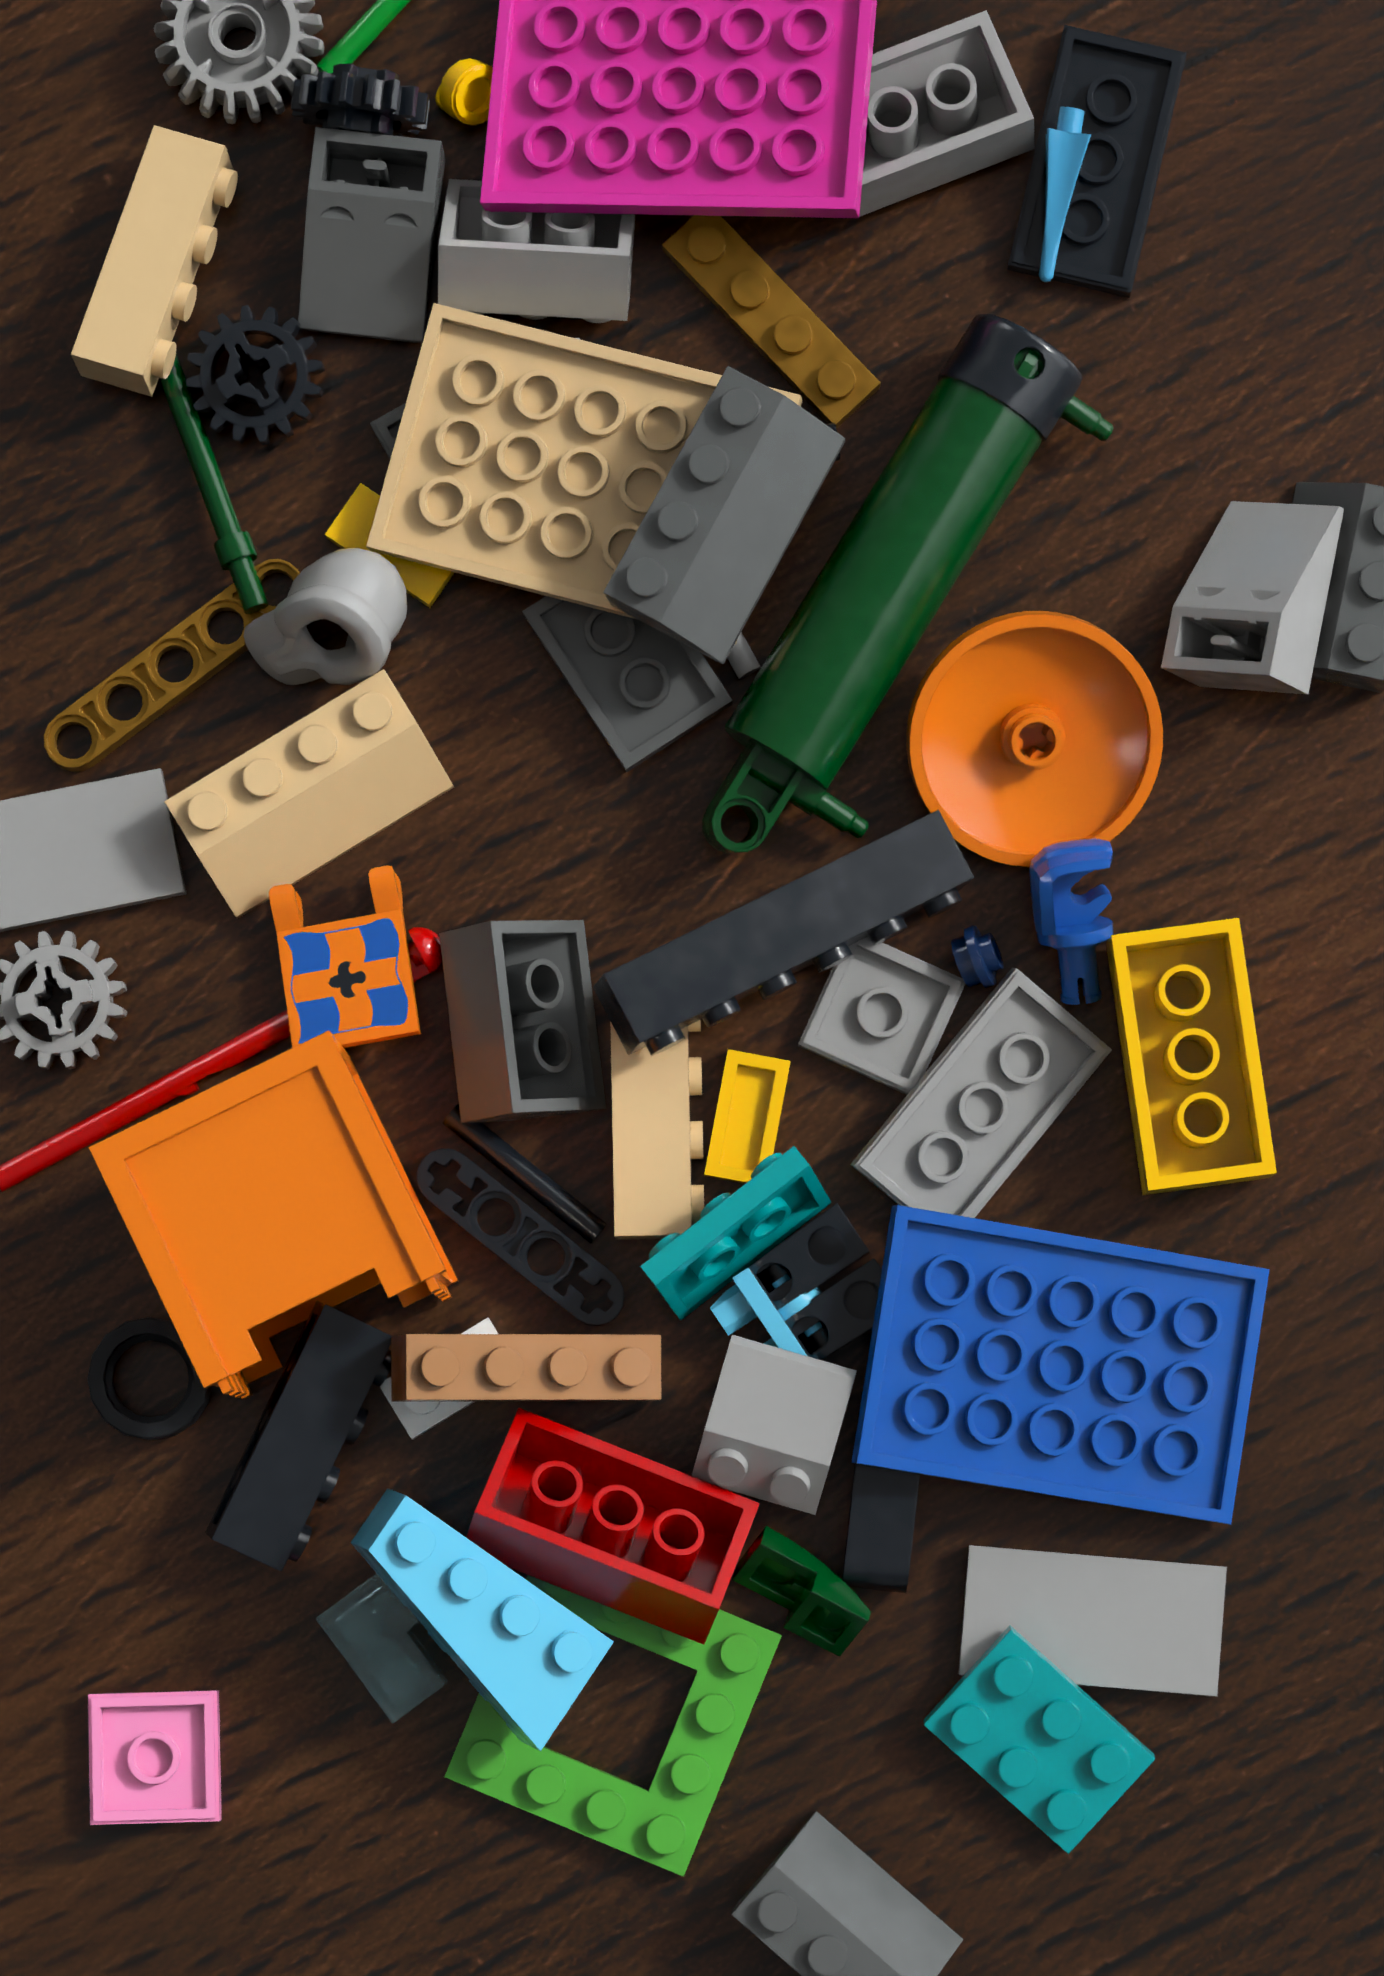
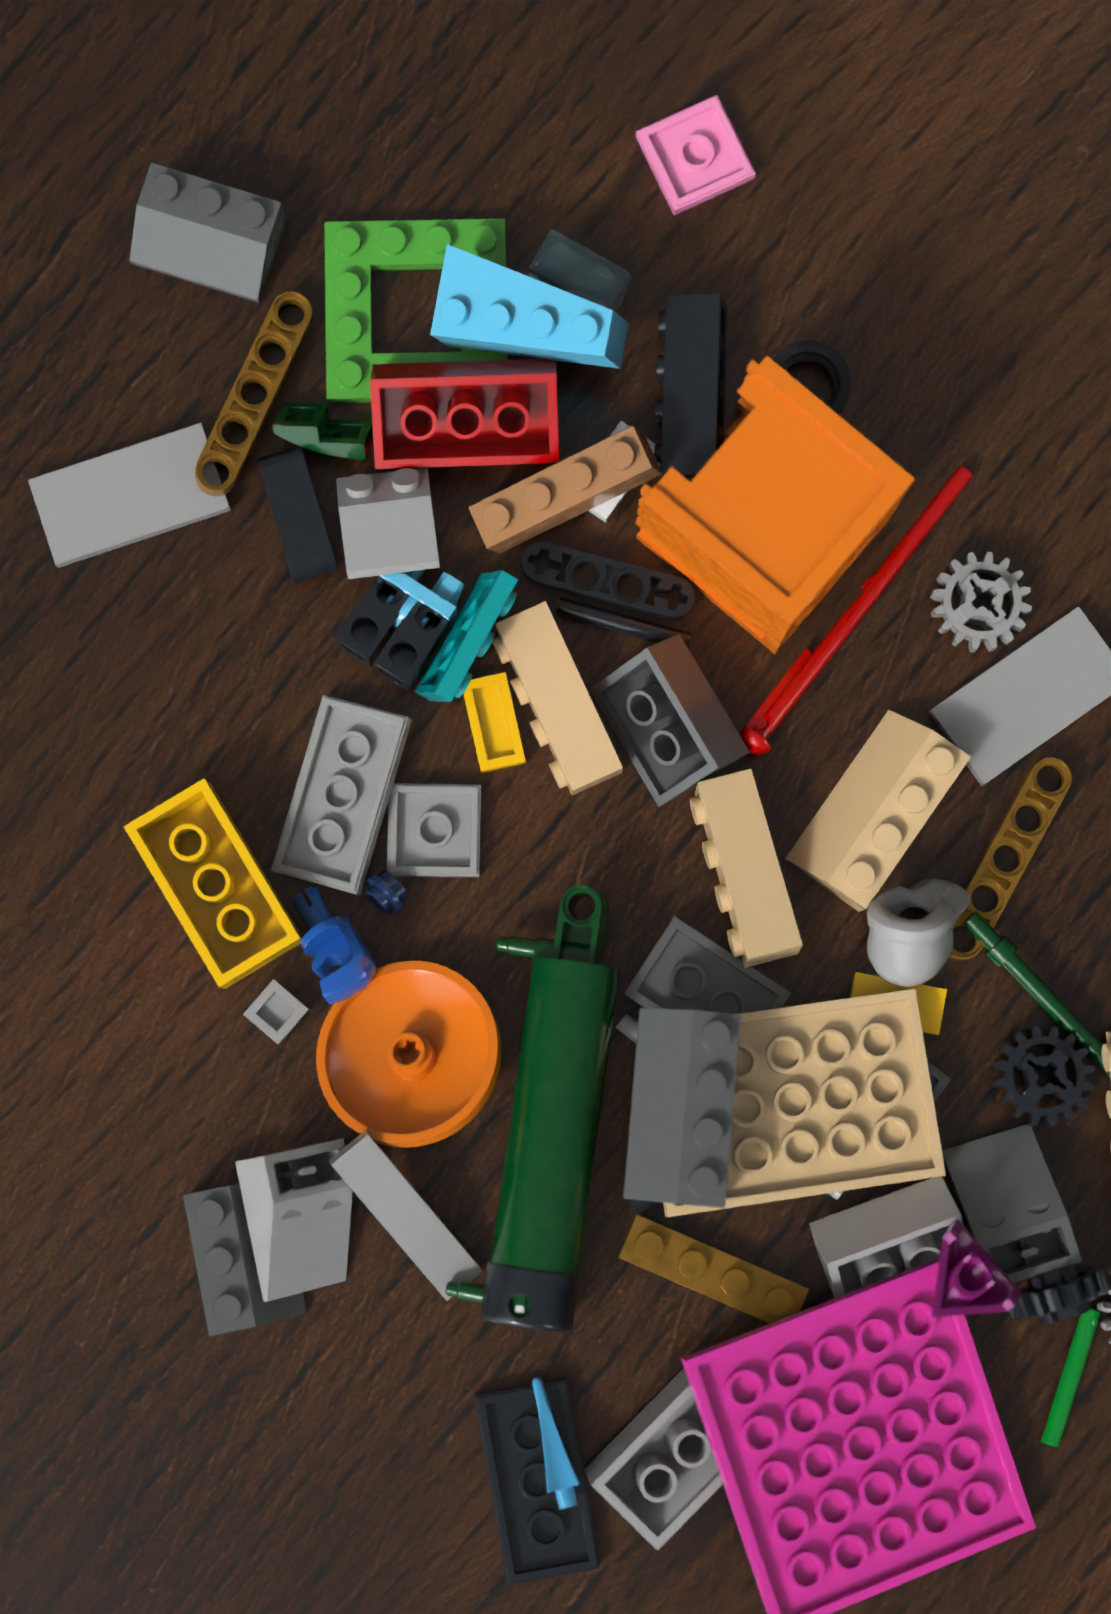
camera: 150 degrees right, 0 degrees up
(348, 971) = (797, 698): orange flag -> none
(463, 159) = (970, 1278): none -> magenta slope
(466, 91) = (990, 1338): yellow tile -> none
(509, 787) = (747, 869): none -> tan brick
(783, 933) = (519, 847): black brick -> none
(843, 1692) = (250, 415): none -> pearl gold beam
(1039, 1739) = (132, 403): teal plate -> none
(1060, 1365) = (216, 643): blue plate -> none
(1123, 544) = (404, 1213): none -> light grey tile
(1179, 867) = (276, 1011): none -> light grey plate

